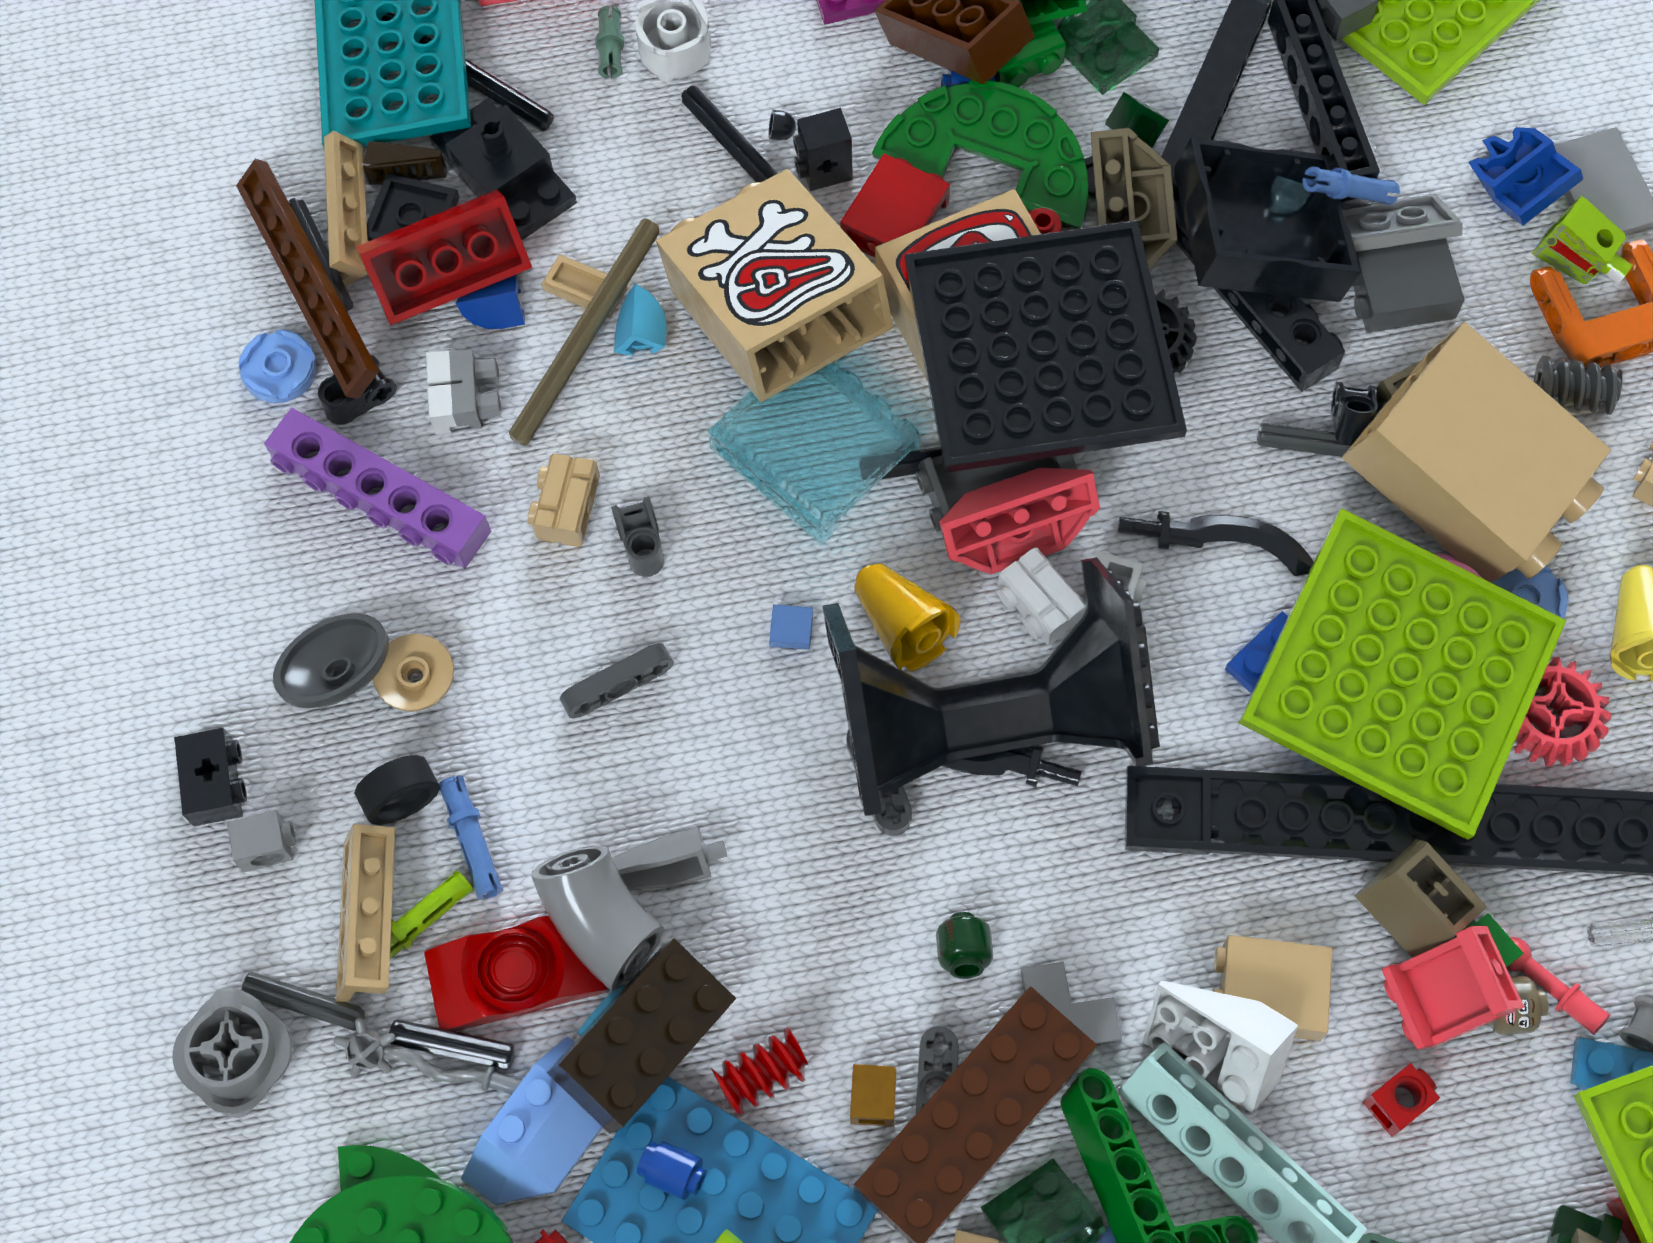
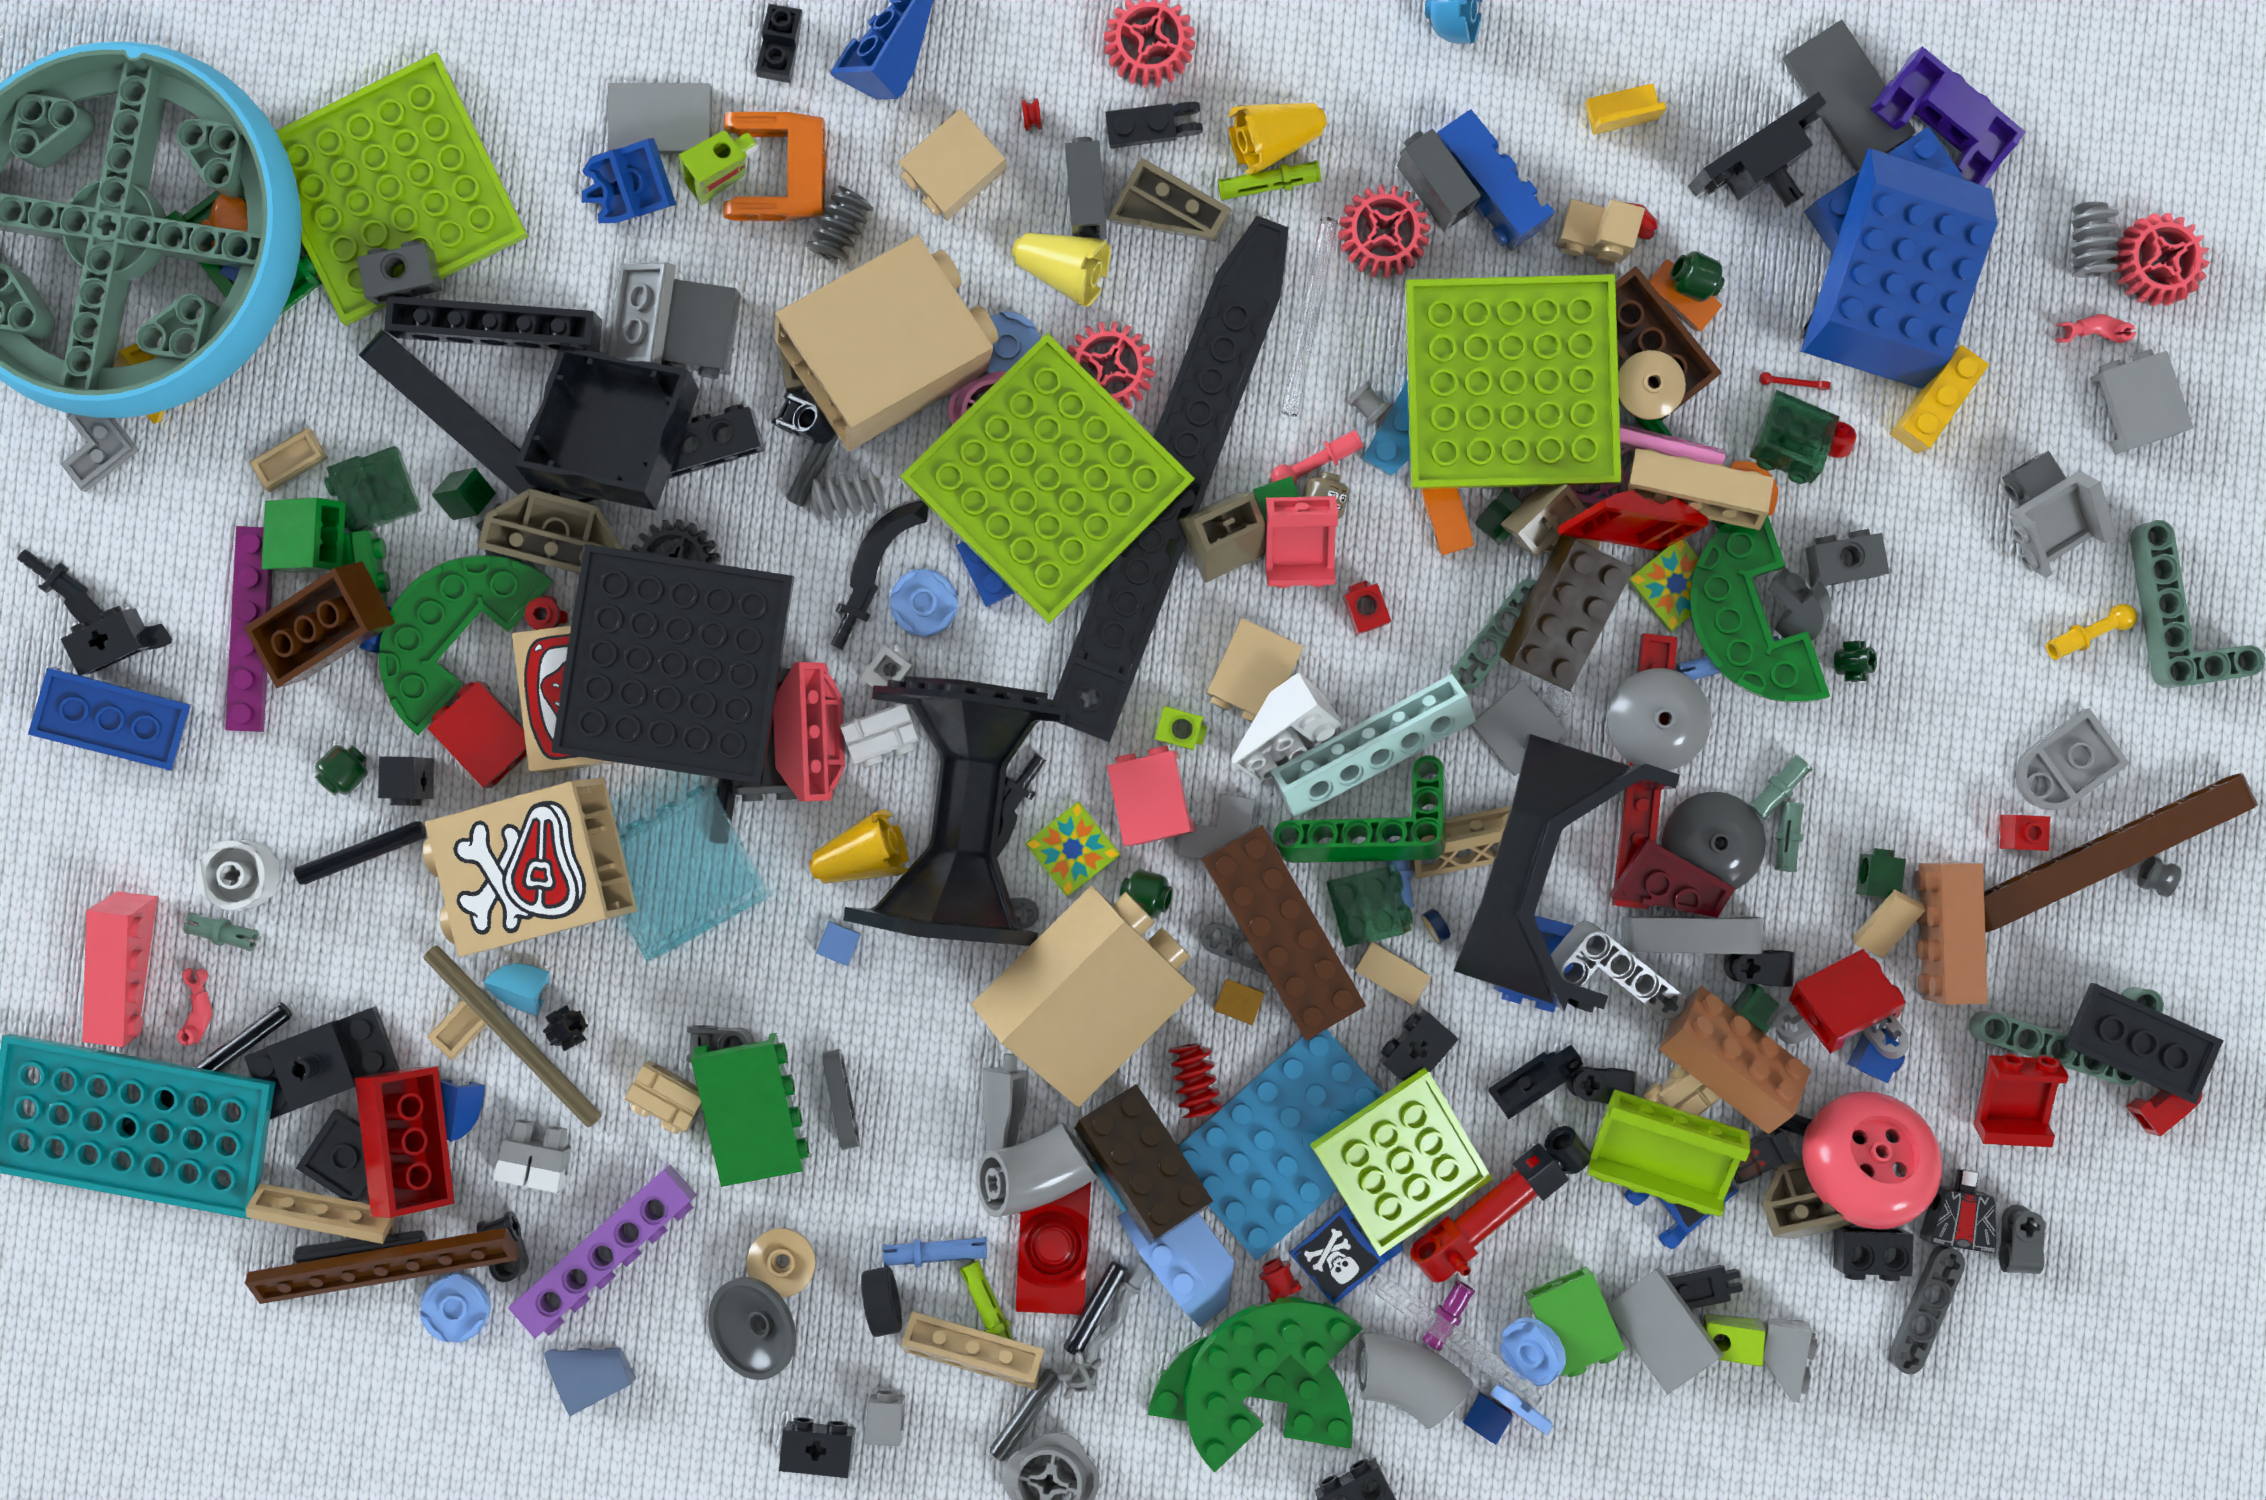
camera: 75 degrees left, 20 degrees up
(236, 515) = (588, 1375): none -> sand blue slope
(402, 161) = (288, 1152): dark brown slope -> none
(523, 50) = (201, 1008): none -> coral arm
(576, 583) = (750, 1111): none -> green panel
(612, 387) = (565, 1028): none -> black gear
(672, 1169) = (1249, 1170): blue brick -> none
(781, 125) = (361, 804): black hinge -> none
(810, 93) = (341, 769): none -> dark green head
(827, 897) = (1087, 993): none -> tan brick
(986, 847) = (1072, 848): none -> tile
(1078, 910) = (1149, 797): none -> coral panel
(1174, 904) = (1167, 719): none -> lime brick
(1204, 600) = (923, 602): none -> light blue tile
(1287, 195) = (584, 394): clear light blue tile -> none
(1290, 482) = (847, 495): none -> light grey piece
(1342, 184) = (599, 350): medium blue pin -> none
(1554, 1164) = (1447, 519): none -> orange slope

